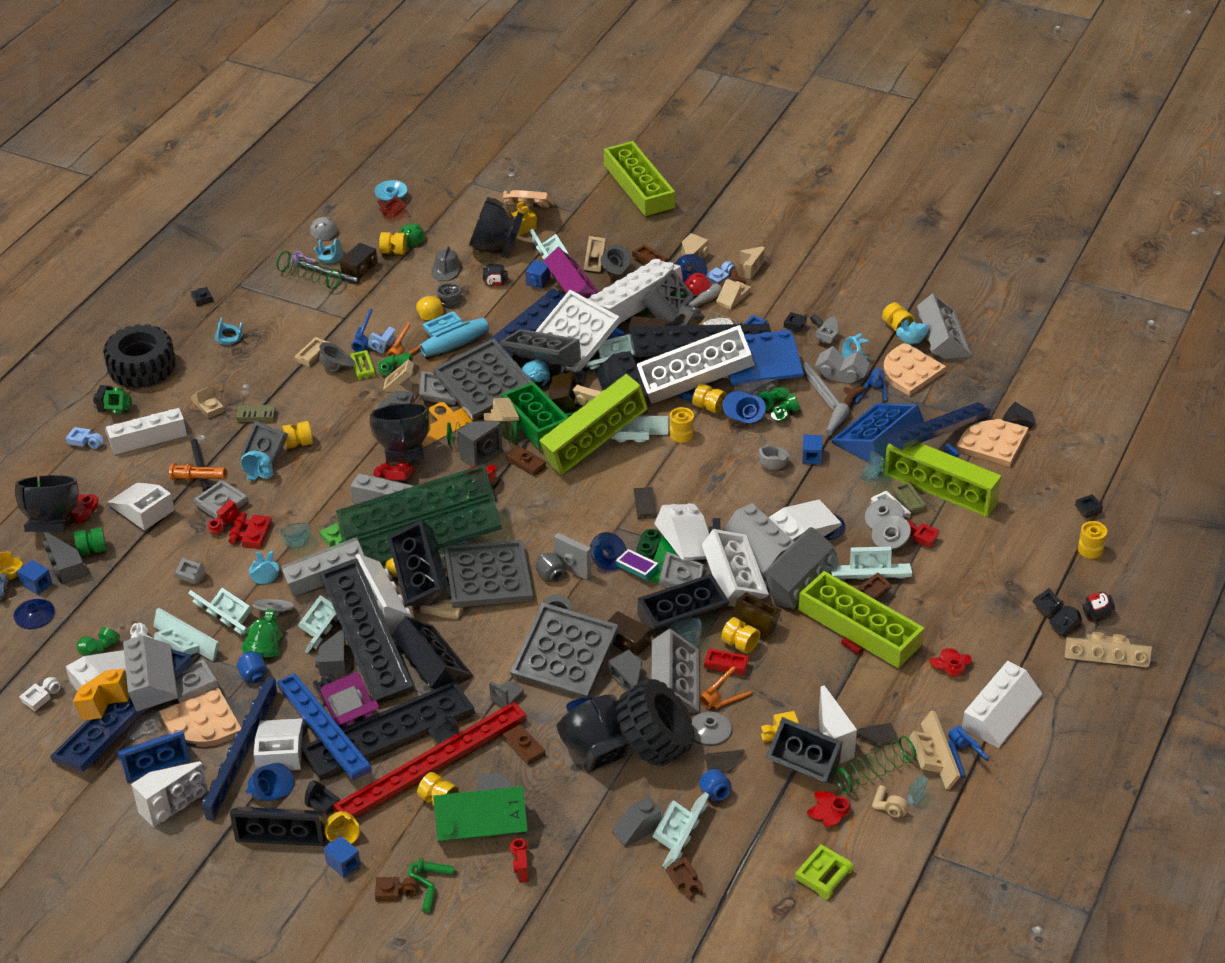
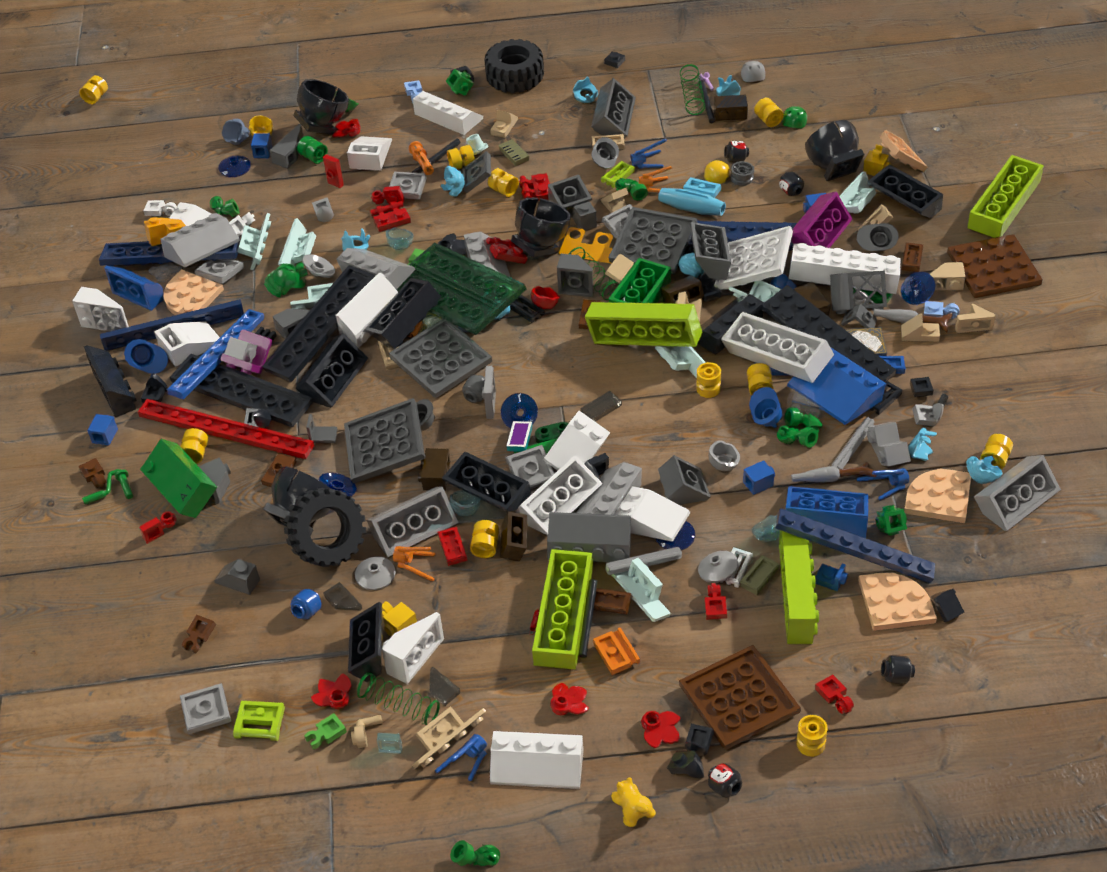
camera: 60 degrees right, 5 degrees up
(149, 537) = (333, 171): none -> red plate
(221, 431) = (476, 143): none -> light aqua piece
(228, 446) = (455, 159): none -> yellow wheel
(252, 667) = (251, 289): blue head -> none
(275, 327) = (613, 109): none -> dark grey slope
(324, 419) = (538, 183): none -> red plate
(341, 502) = (452, 243): none -> black plate
(342, 825) = (126, 414): yellow hair -> none
(366, 398) = (569, 192): none -> dark grey slope
(381, 343) = (650, 167): light blue bracket -> none
(388, 189) = (833, 78): medium azure dish -> none
(392, 207) = (814, 90): clear red bracket -> none
(420, 284) = (736, 151): none -> black head
(446, 265) = (780, 153): dark grey piece -> none
(580, 219) = (908, 191): none -> black slope
(626, 670) = (392, 491): dark grey slope -> none
(676, 825) = (247, 600): light aqua bracket -> none
(697, 283) = (901, 300): red helmet -> none
(702, 219) = (995, 266): none -> reddish brown plate
(778, 492) = (683, 481): none -> dark grey slope
(780, 905) = (205, 708): none -> light grey plate
(844, 558) = (648, 559): none -> light grey axle
(872, 827) = (327, 730): none -> bright green plate
(891, 526) = (694, 580): light grey dish -> none
(923, 397) = (897, 520): none -> green brick
(925, 610) = (616, 651): none -> orange plate
(1019, 622) = (663, 728): none -> red plate
(1023, 563) = (739, 697): none -> reddish brown plate
(1055, 512) = (831, 690): none -> red plate
(1061, 469) = (897, 669): none -> black head
(1068, 785) = (464, 853): none -> green arm
(1086, 666) = (633, 803): none -> yellow animal
(1089, 505) = (865, 714): black plate -> none
(1108, 650) = (674, 812): tan bracket -> none

